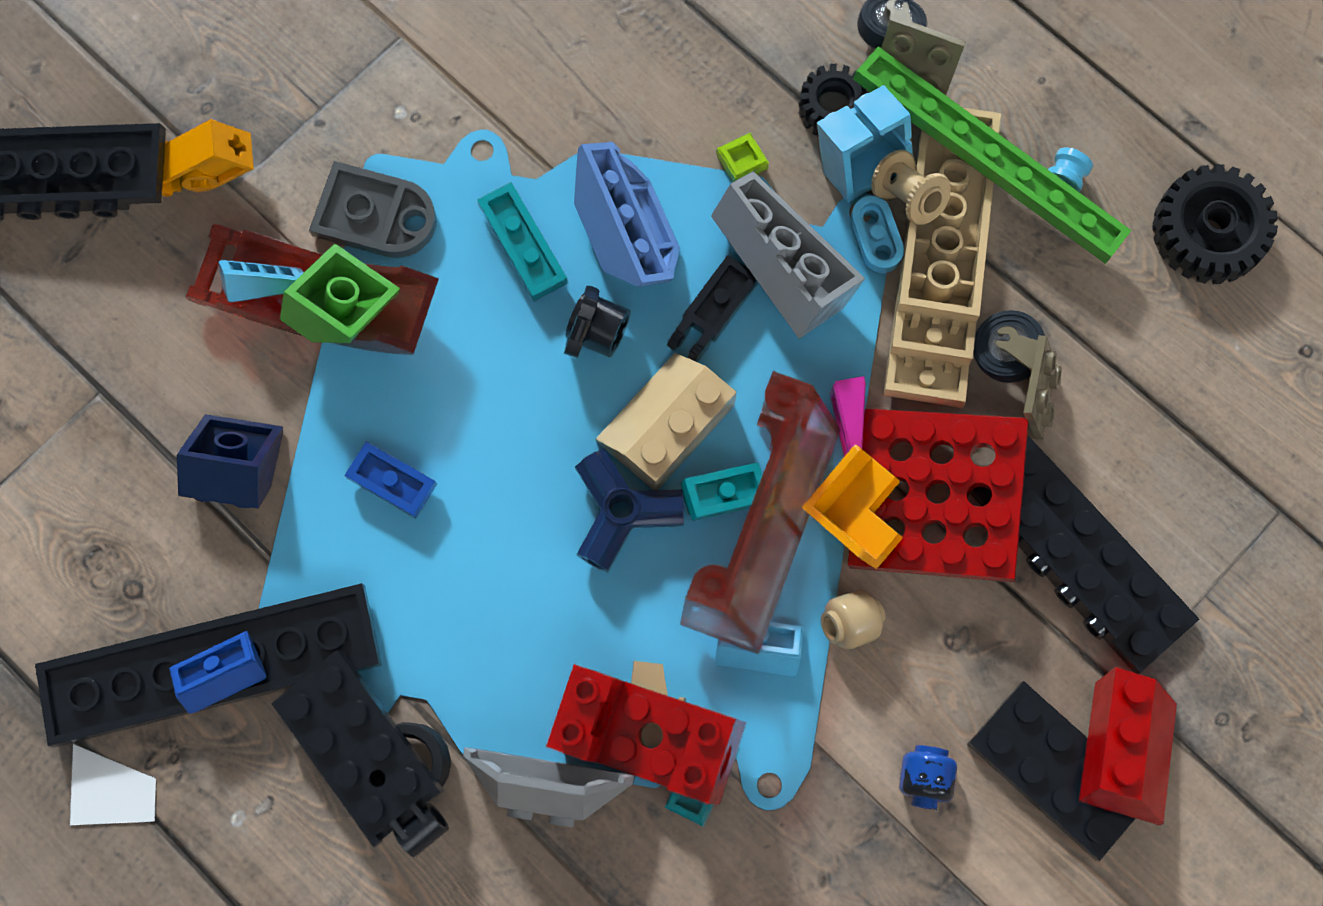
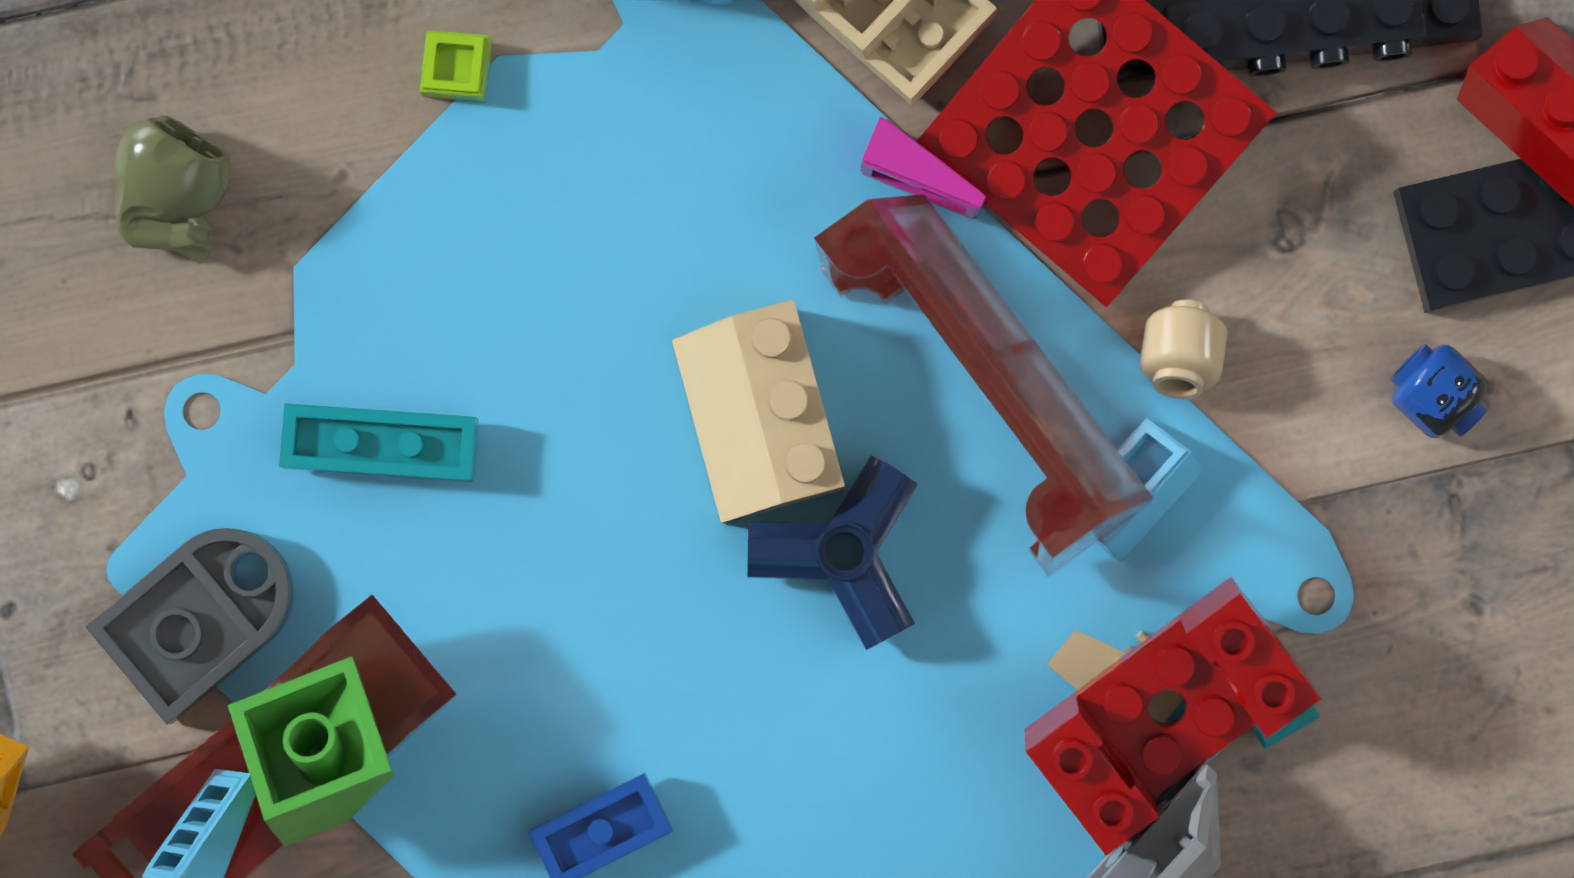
camera: 55 degrees left, 10 degrees up
(584, 58) = (167, 186): none -> olive piece
(595, 324) = (569, 423): black piece -> none
(623, 217) = (444, 285): medium blue wedge -> none
(714, 306) = (644, 242): black hinge -> none
(721, 491) = (910, 402): teal plate -> none
(785, 254) = (641, 105): light grey wedge -> none
(848, 503) = (1039, 260): light orange panel -> none

